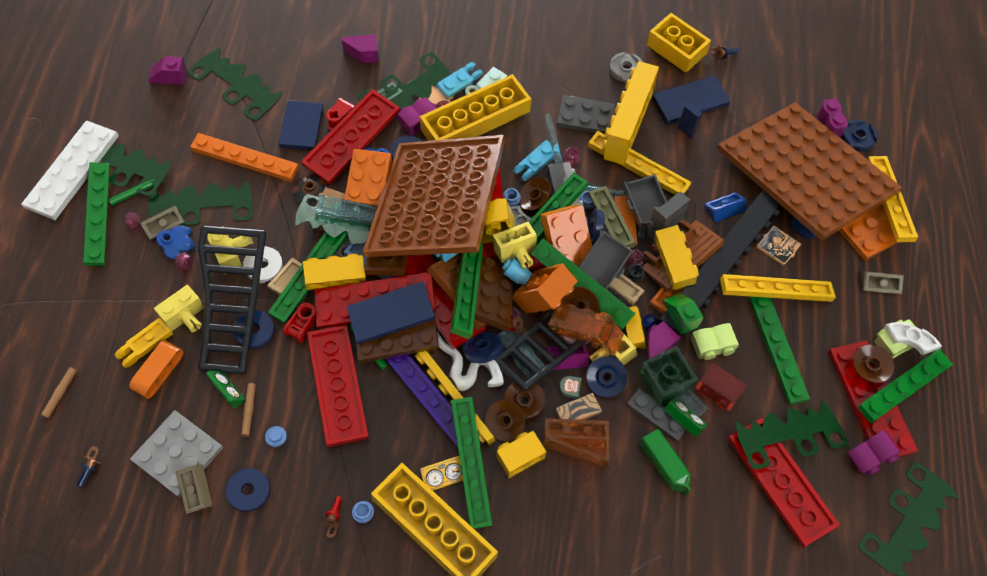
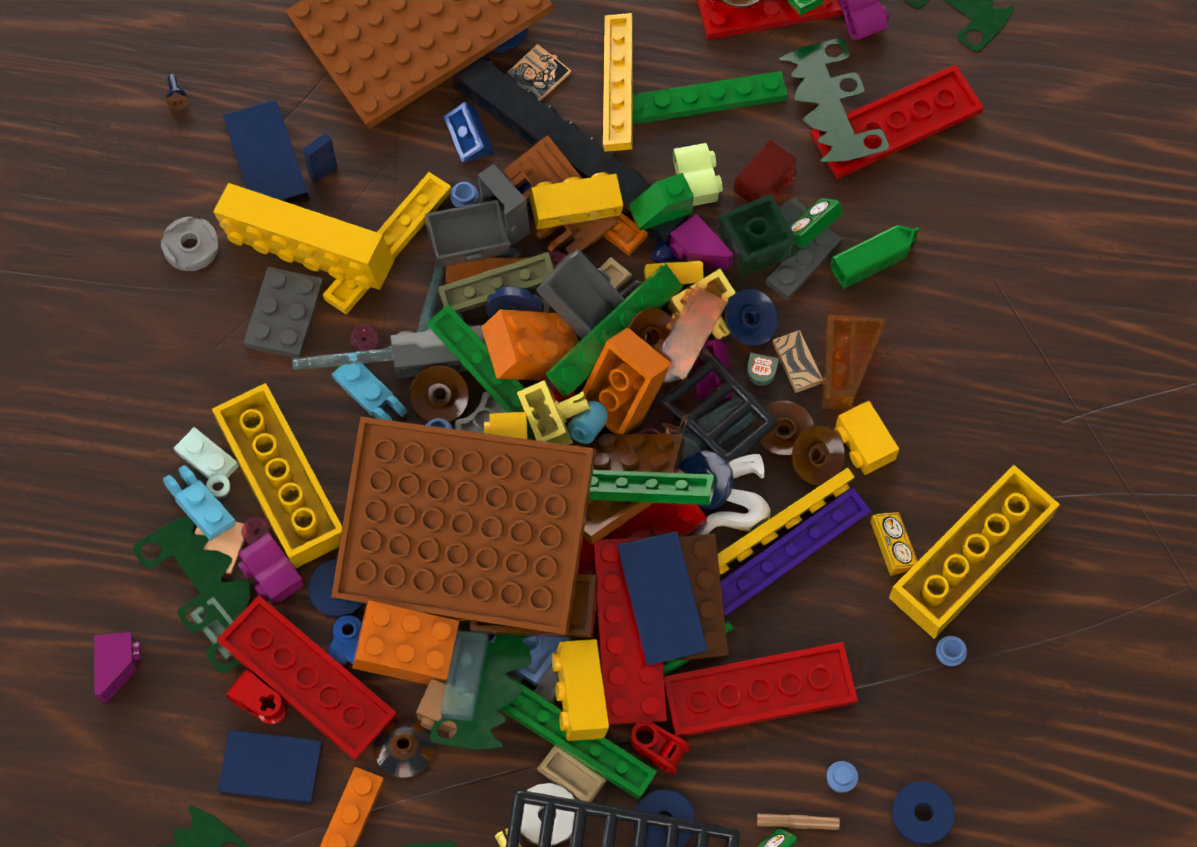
camera: 85 degrees left, 5 degrees up
(332, 516) = (960, 691): piece -> none
(471, 463) = (884, 498): green plate -> none
(678, 42) = (157, 157): yellow brick -> none

